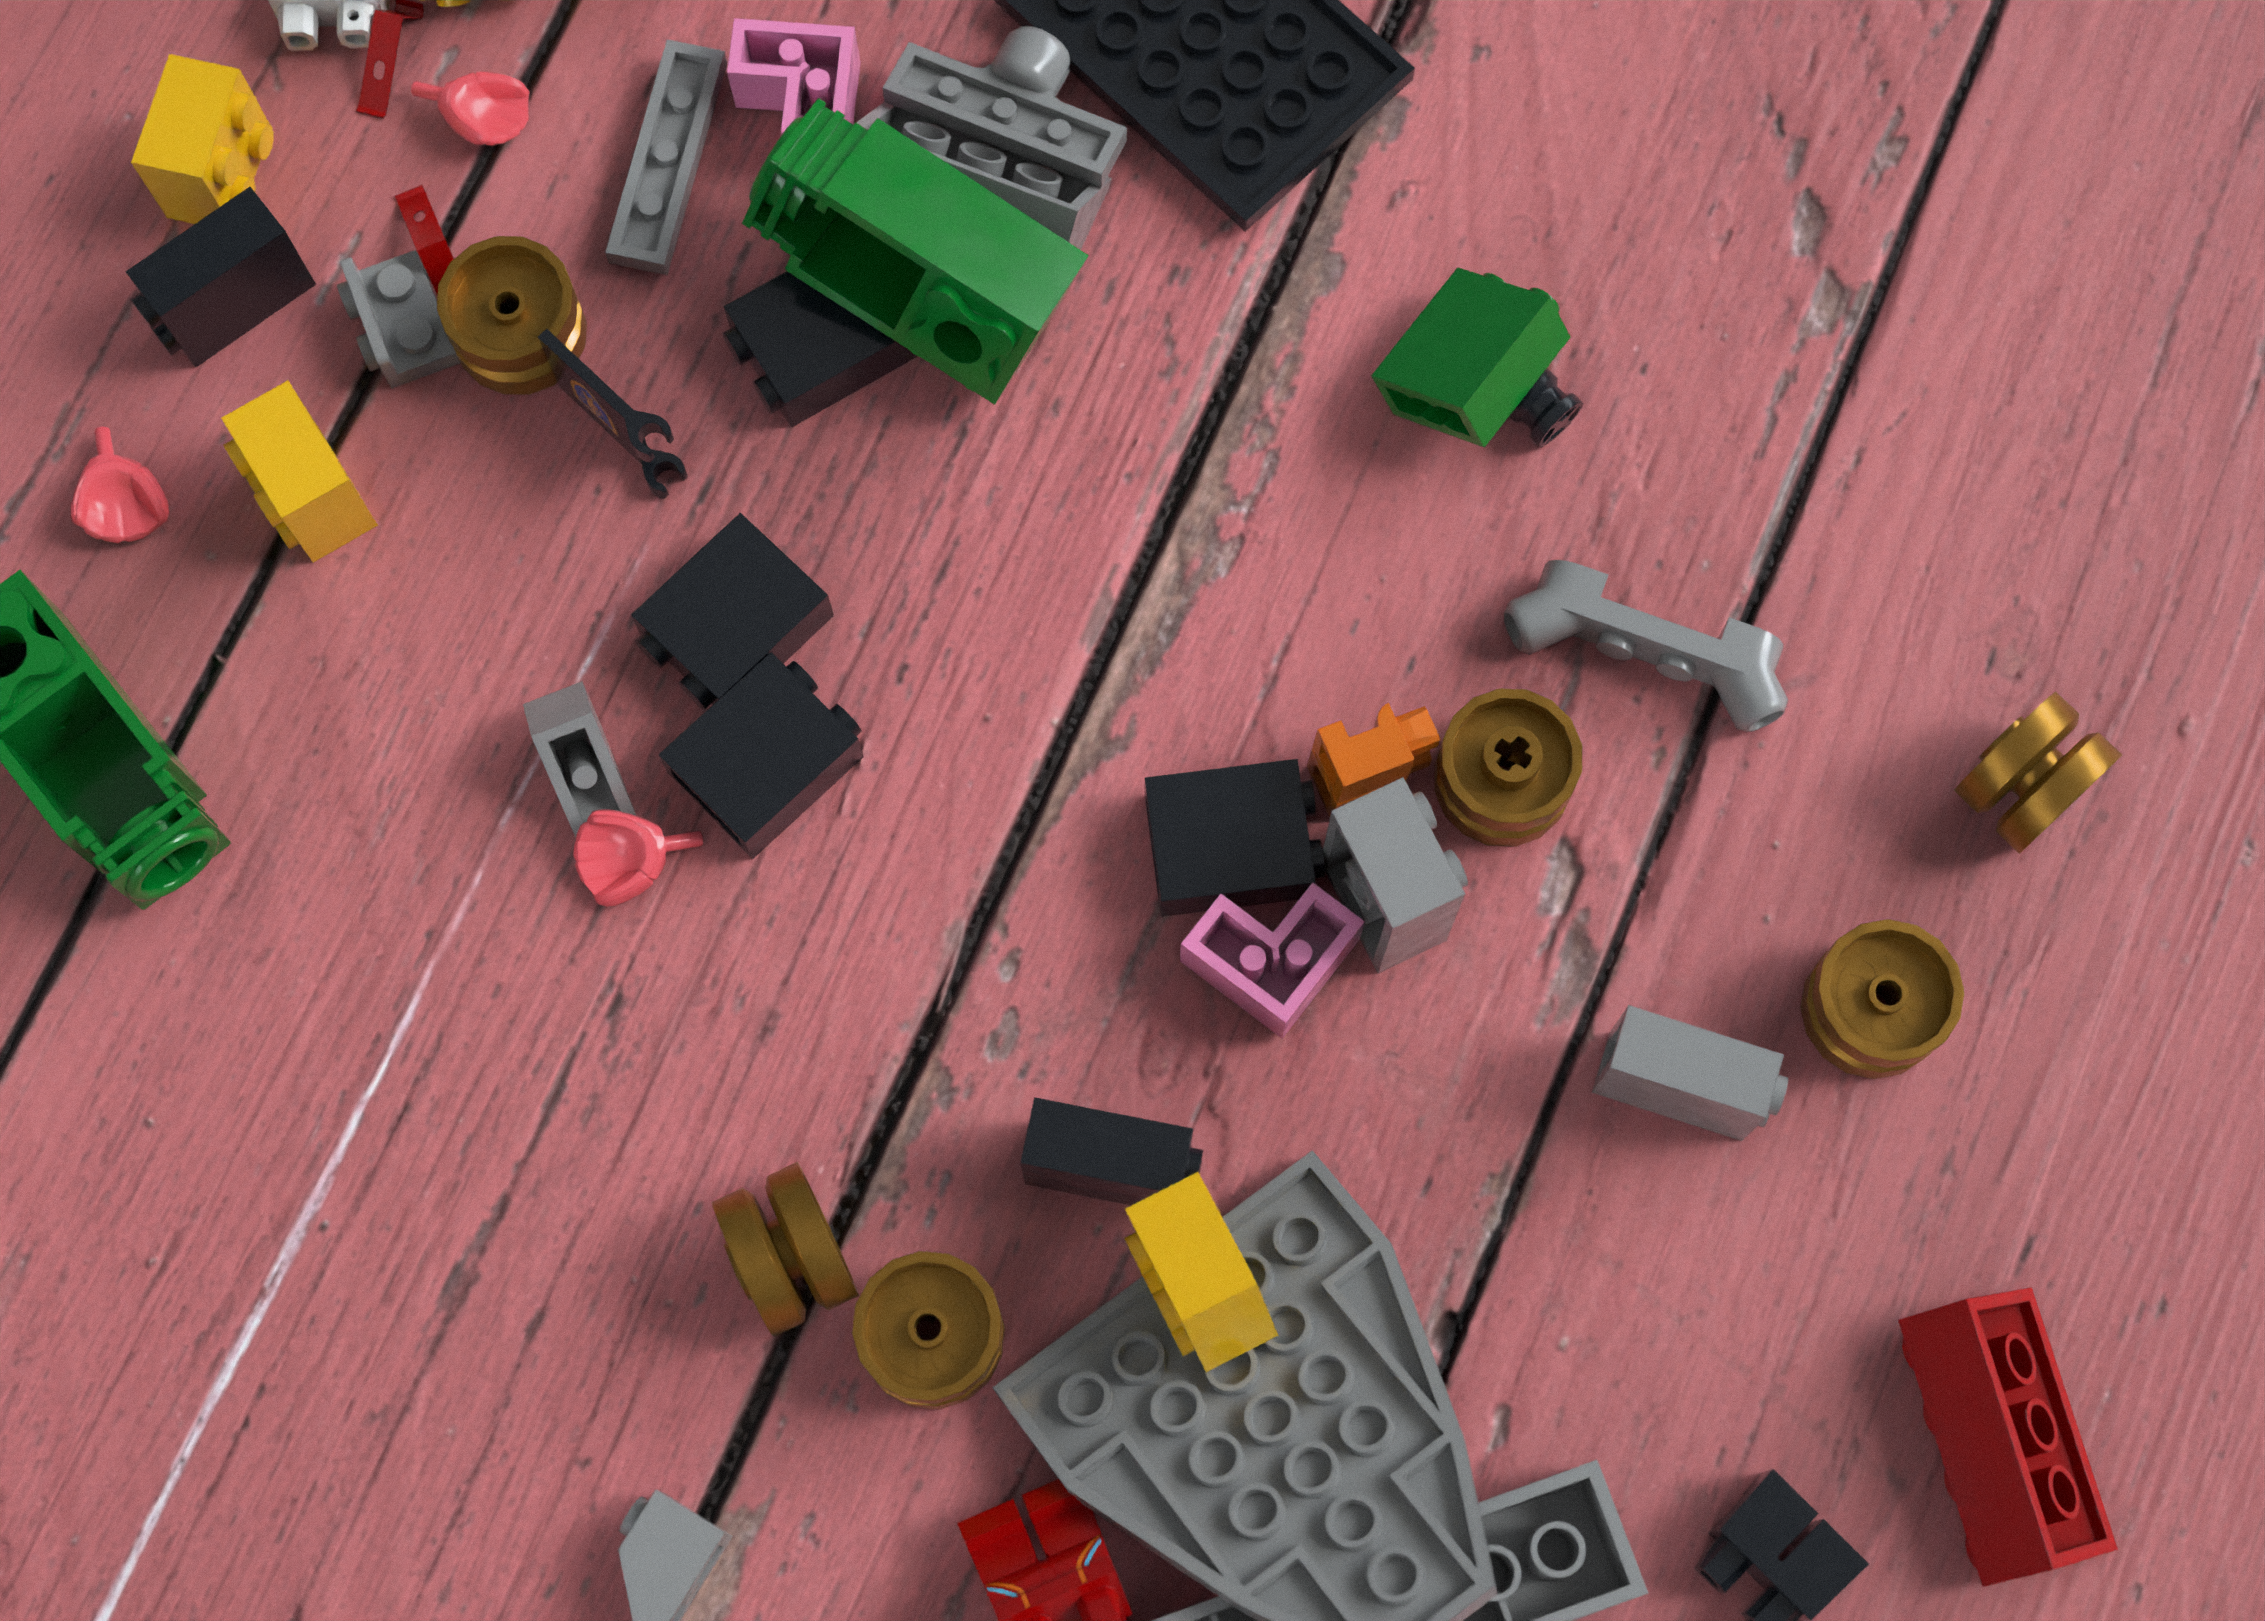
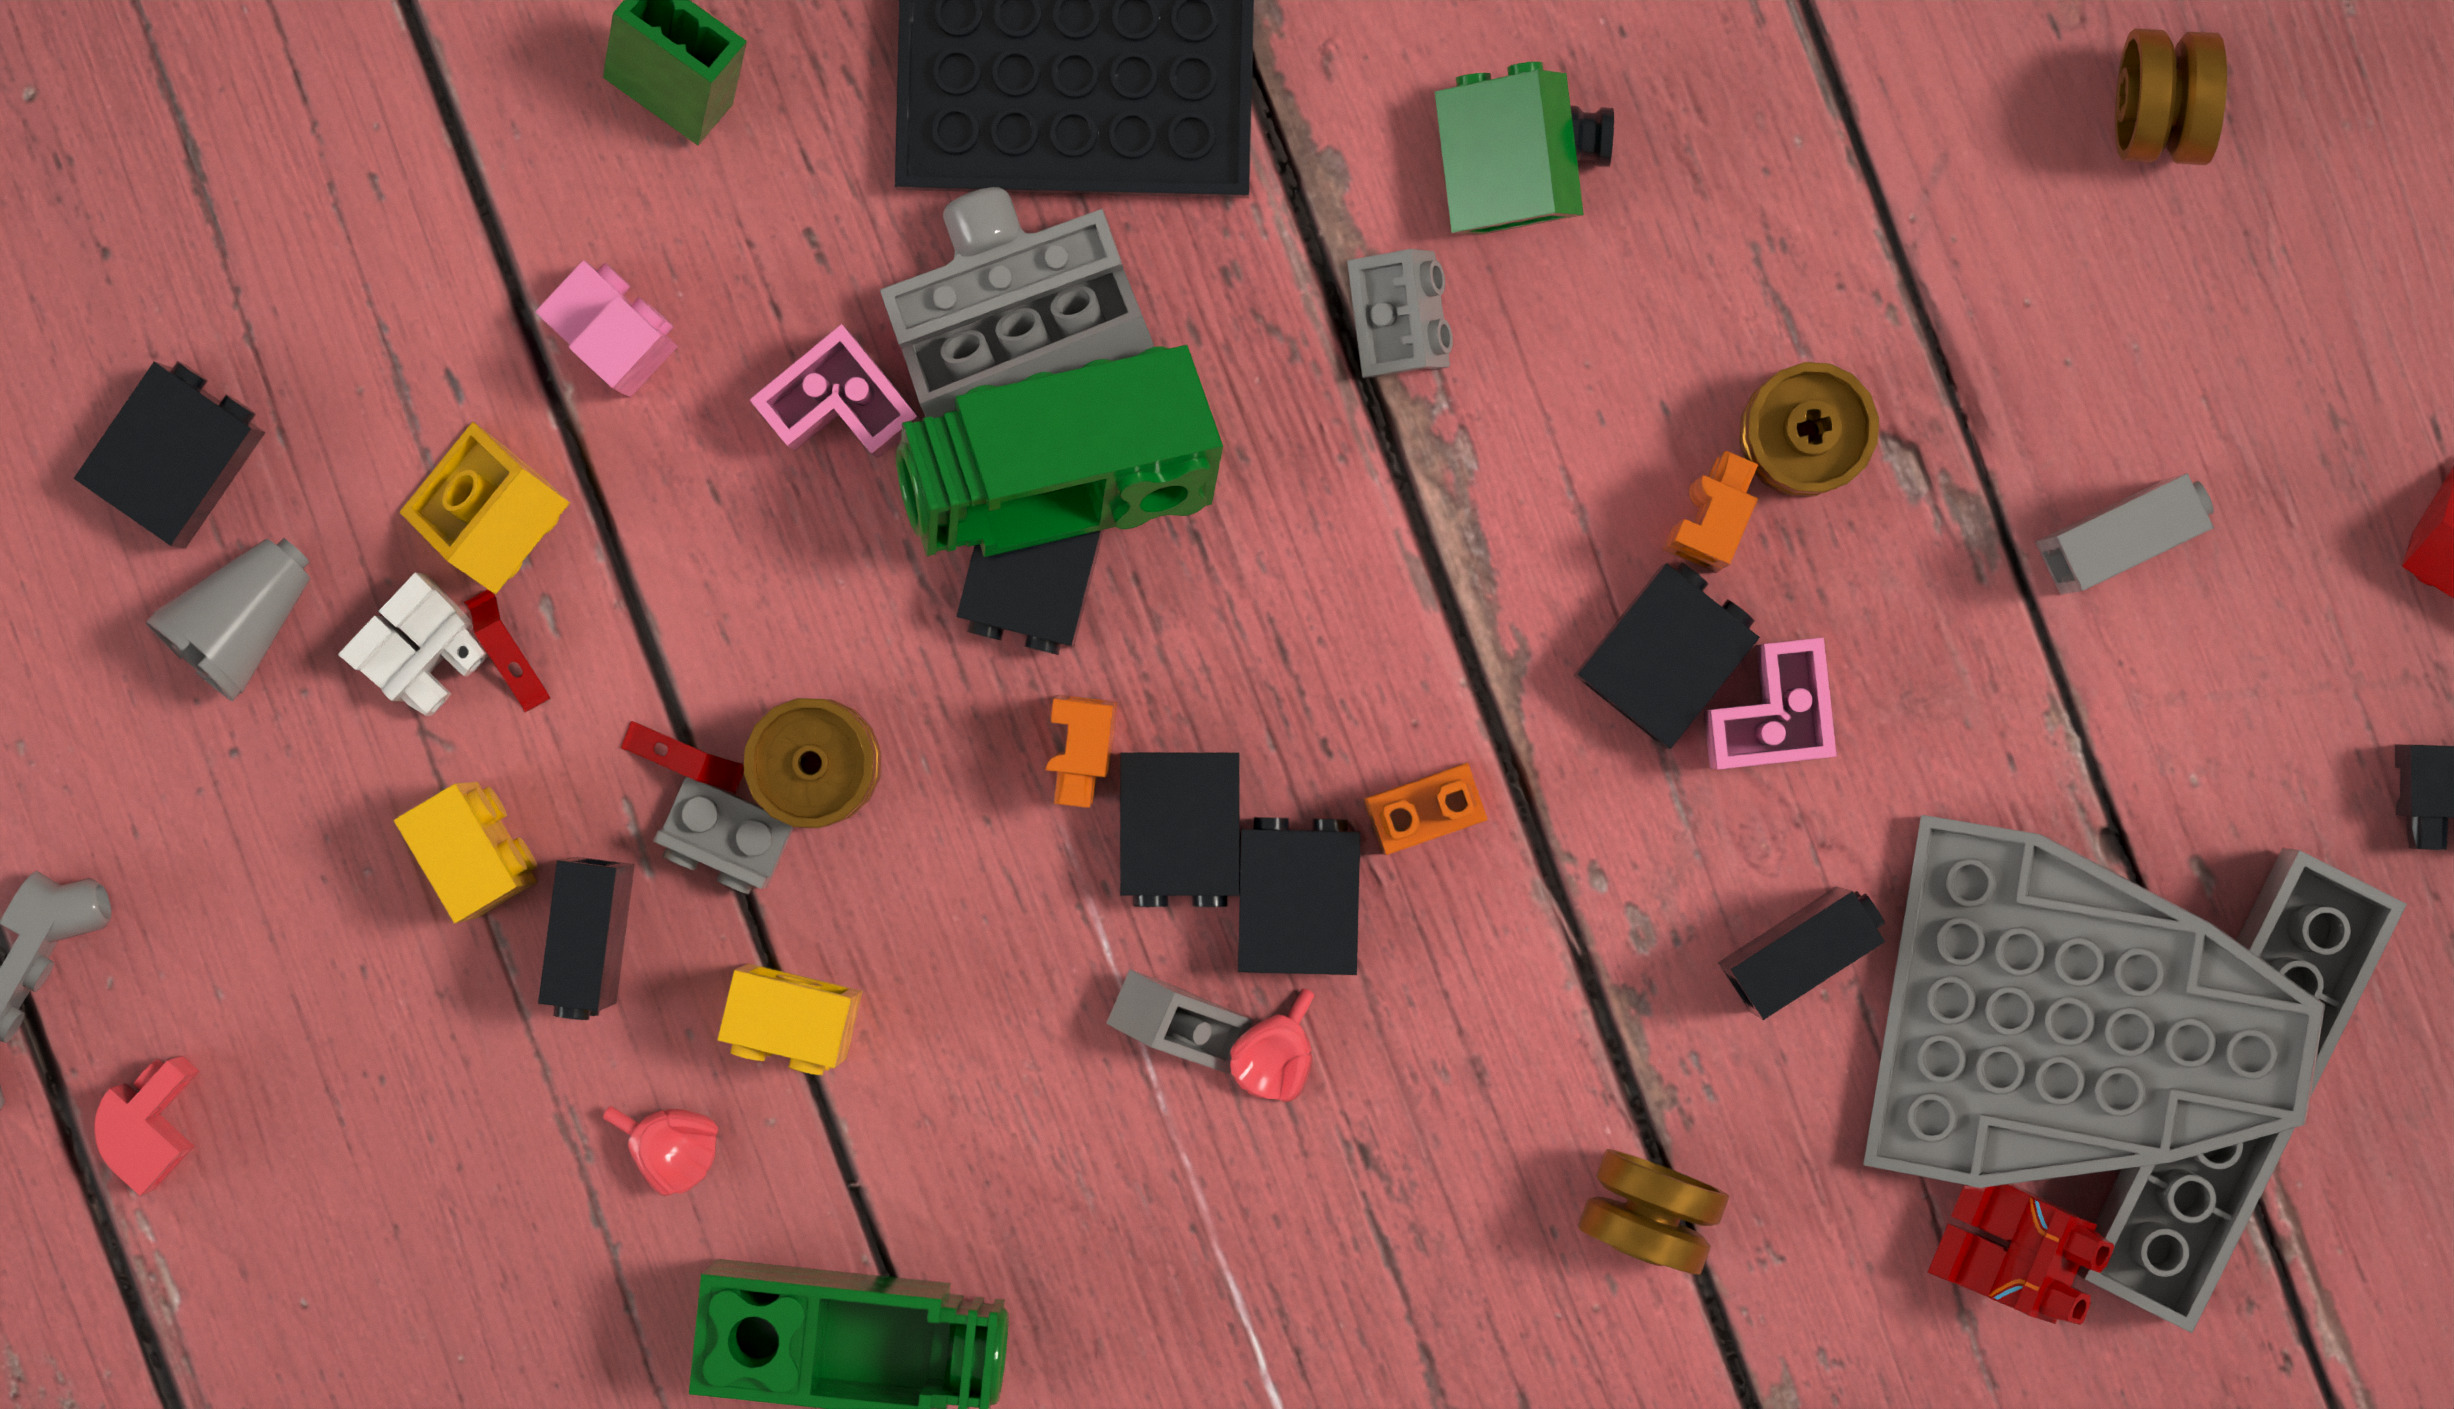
camera: 45 degrees left, 15 degrees up
(481, 106) = (618, 627): coral piece -> none
(613, 413) = (1004, 768): black flag -> none
(666, 157) = (788, 536): light grey plate -> none
(717, 482) = (1087, 747): none -> orange hips
(930, 774) = (1425, 809): none -> orange hips
(936, 1370) = (1819, 1196): pearl gold wheel -> none
(1198, 1274) = (1942, 976): yellow brick -> none
(1276, 405) = (1399, 312): none -> light grey bracket
(1393, 873) = (1817, 590): light grey brick -> none
(1736, 663) = (1888, 200): light grey plate -> none
(1911, 975) = (2229, 331): pearl gold wheel -> none

